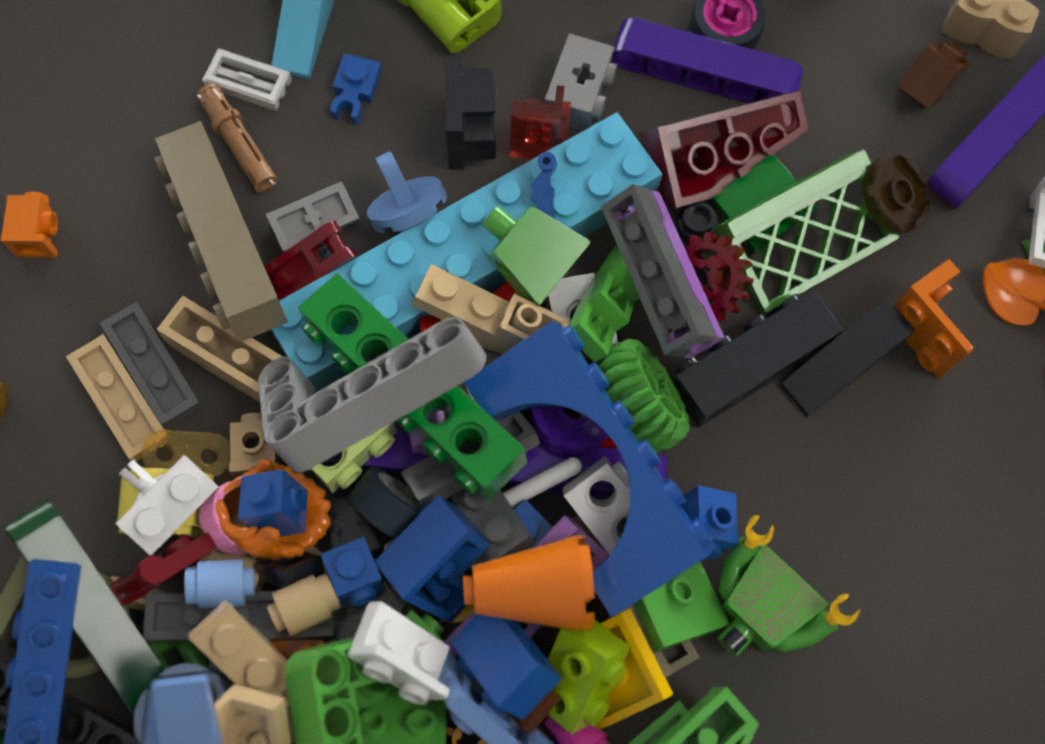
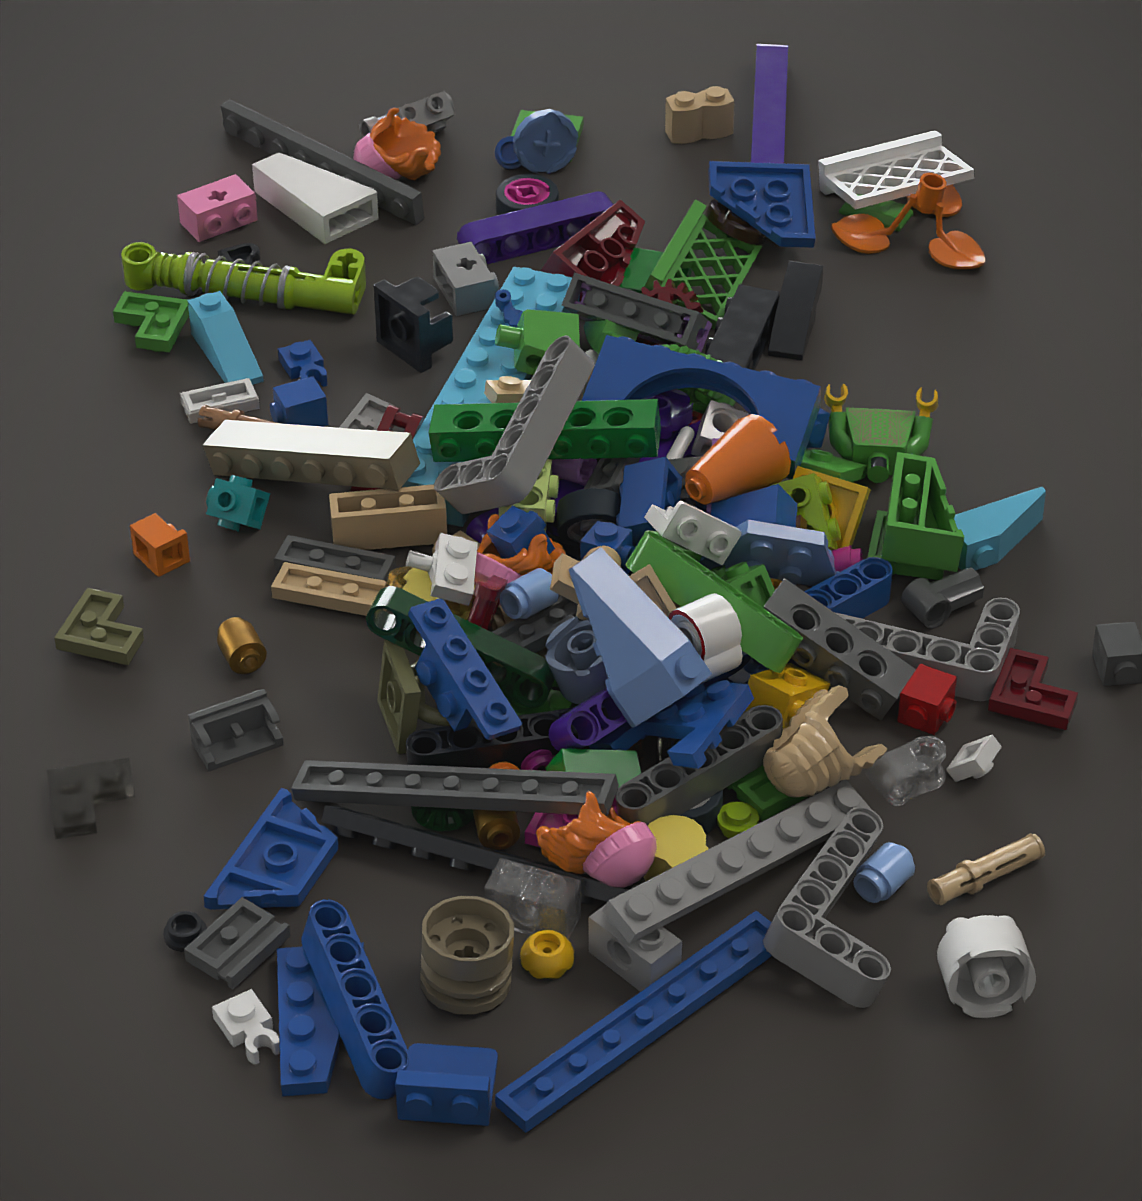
camera: 35 degrees left, 30 degrees down
(127, 231) = (236, 503): none -> teal brick
(293, 142) = (300, 403): none -> blue brick
(406, 201) = (415, 378): medium blue tile -> none
(538, 125) = (468, 300): clear red bracket -> none
(935, 72) = (693, 154): reddish brown slope -> none
(935, 338) = (842, 258): orange bracket -> none
(945, 192) = (768, 197): none -> blue plate

